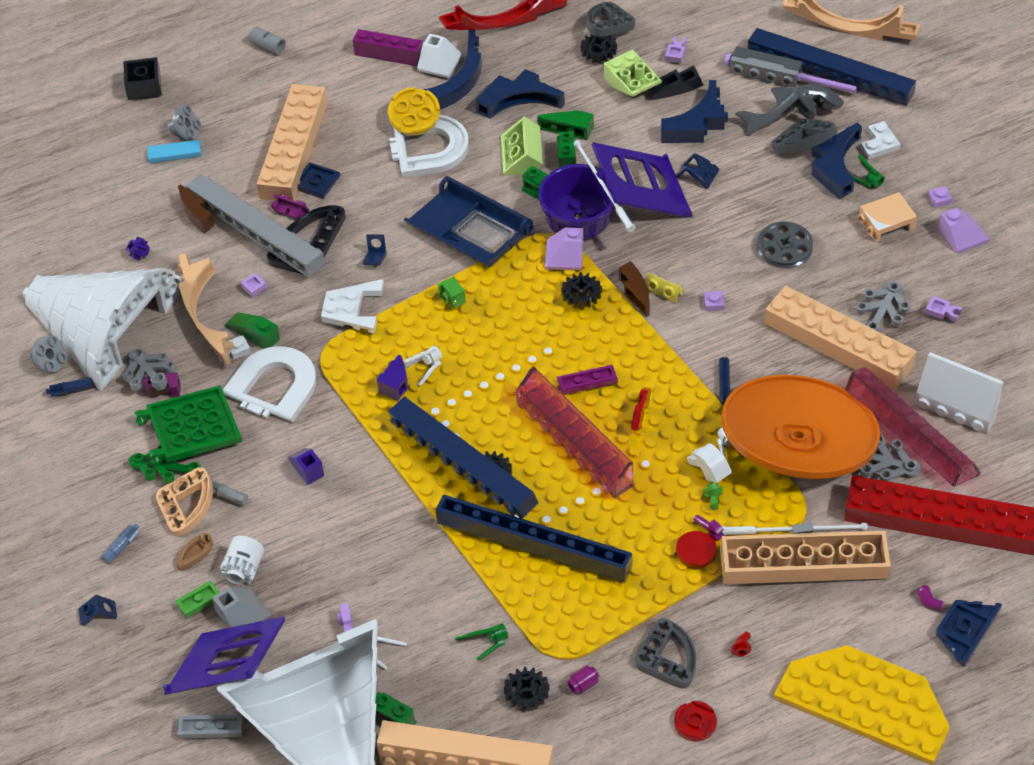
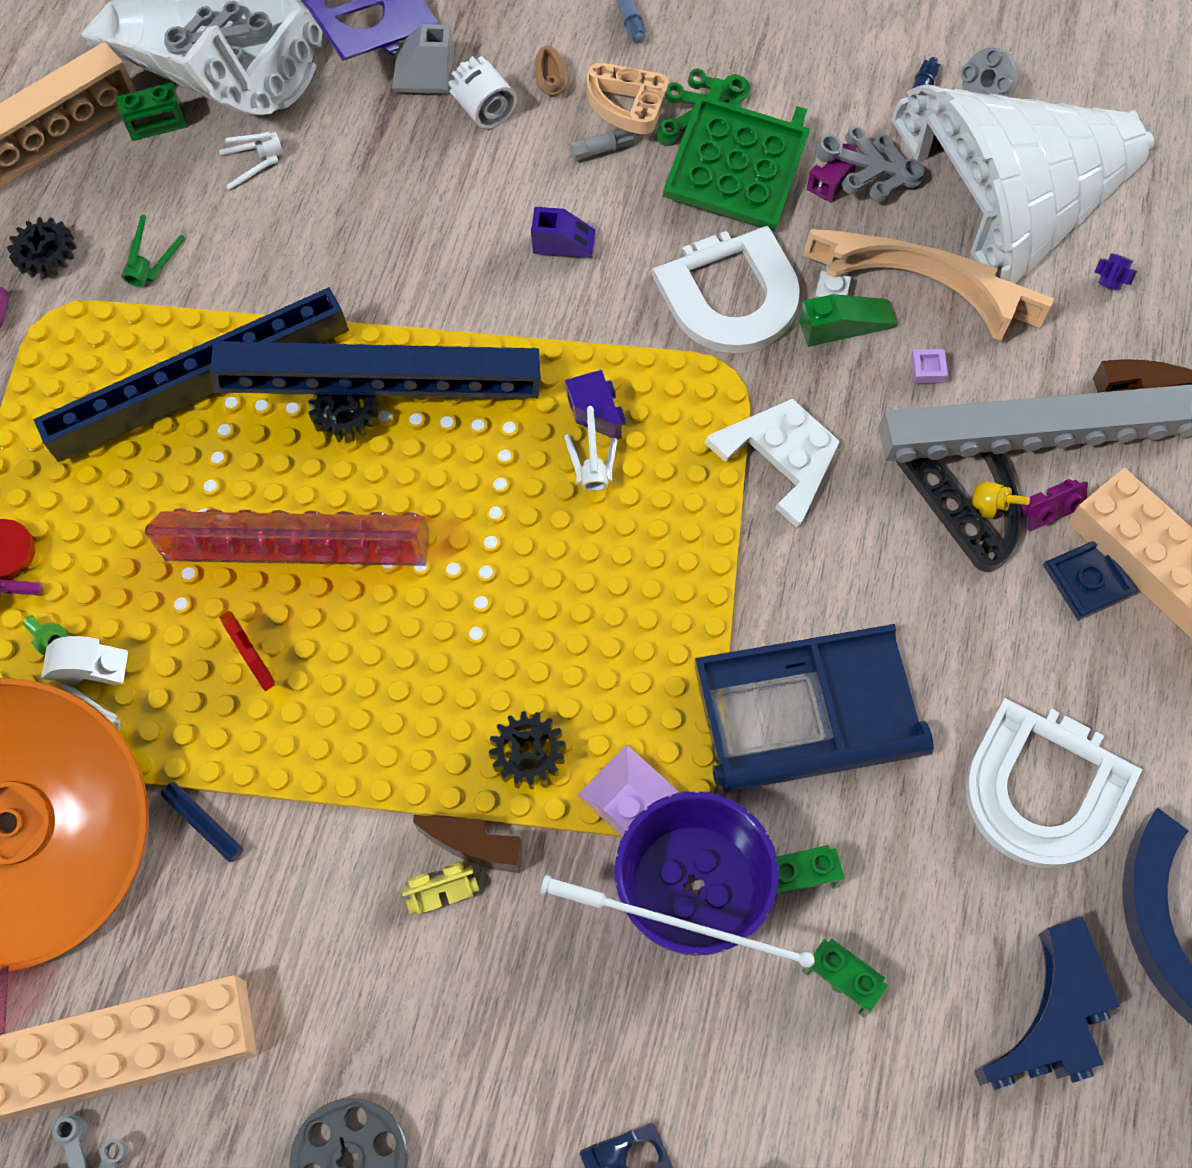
camera: 130 degrees right, 15 degrees up
(197, 599) = (481, 36): bright green plate -> none
(309, 224) = (991, 497): none -> yellow piece
(313, 720) = (180, 39): none -> light grey plant
(345, 617) = (308, 144): lavender plate -> none
(375, 254) = (855, 542): dark blue bracket -> none
(413, 111) = (1129, 800): yellow tile -> none
(451, 292) = (681, 577): bright green brick -> none
(521, 147) = (914, 915): yellowish green slope -> none
(577, 121) = (908, 1045): green slope -> none
(587, 379) = (374, 637): magenta tile -> none
(668, 201) = (597, 1025): dark purple door -> none
(714, 300) = (350, 941): lavender plate -> none

